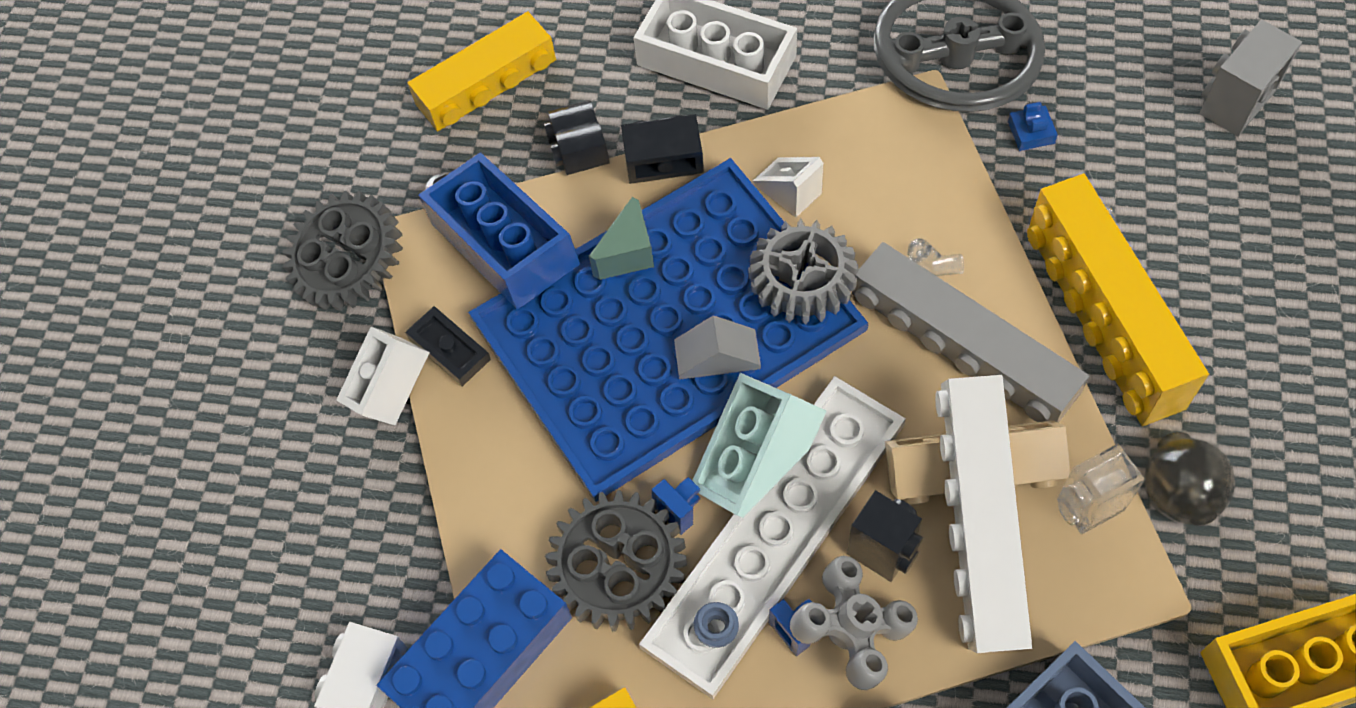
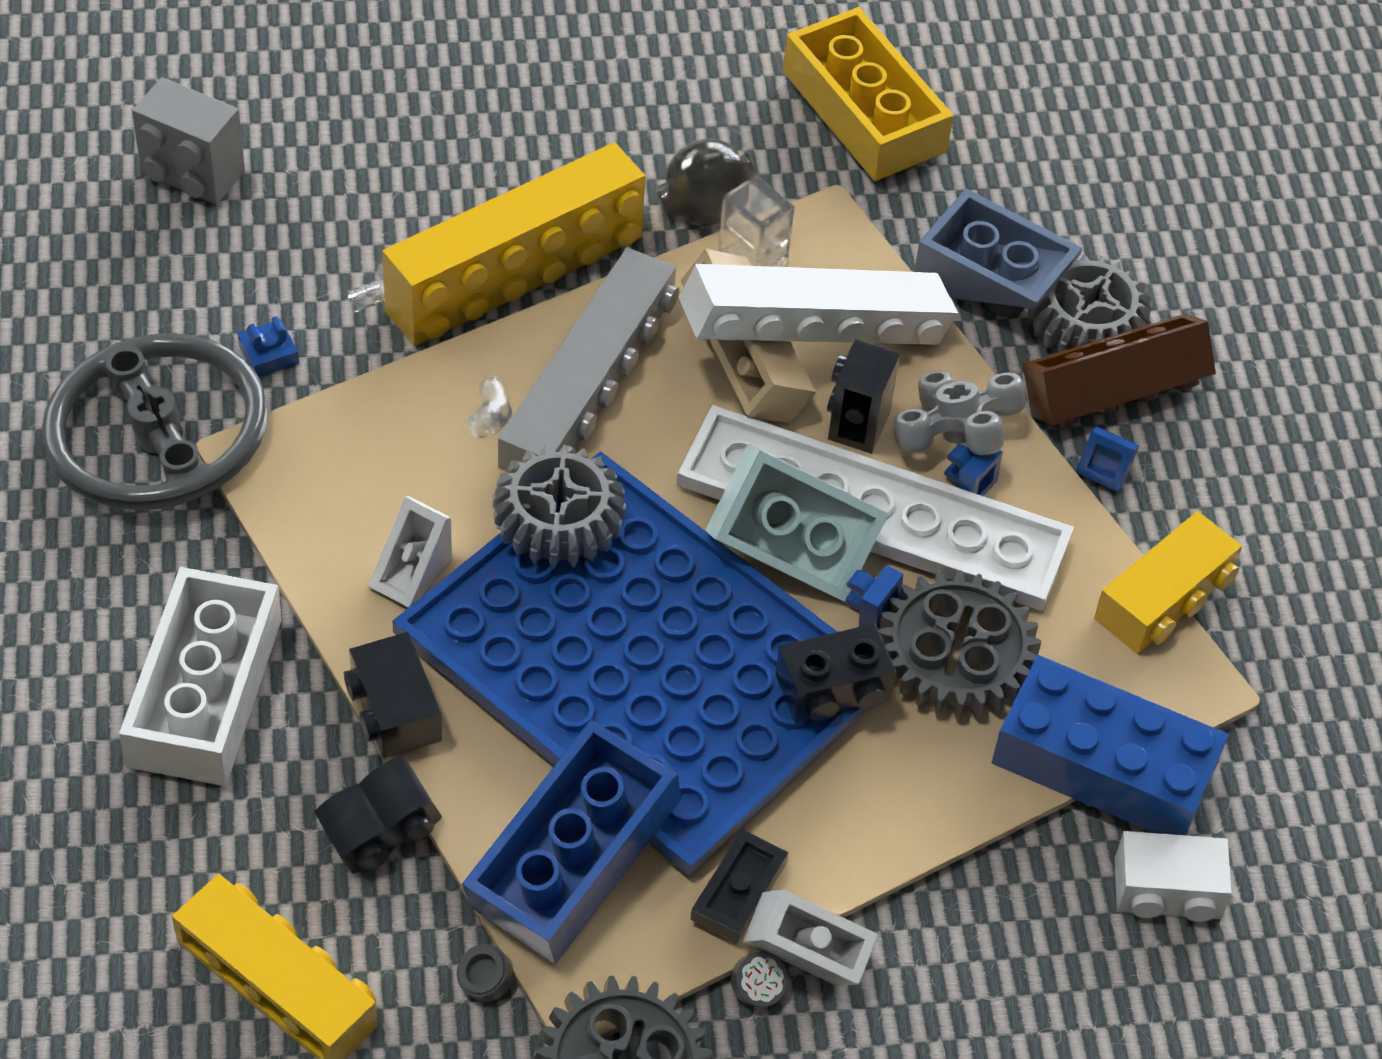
camera: 115 degrees left, 10 degrees down
(591, 438) = (835, 673): none -> black brick
(624, 245) = (559, 690): sand green slope -> none
(711, 612) = (1009, 516): sand blue plate -> none
(716, 349) = (685, 582): light grey slope -> none

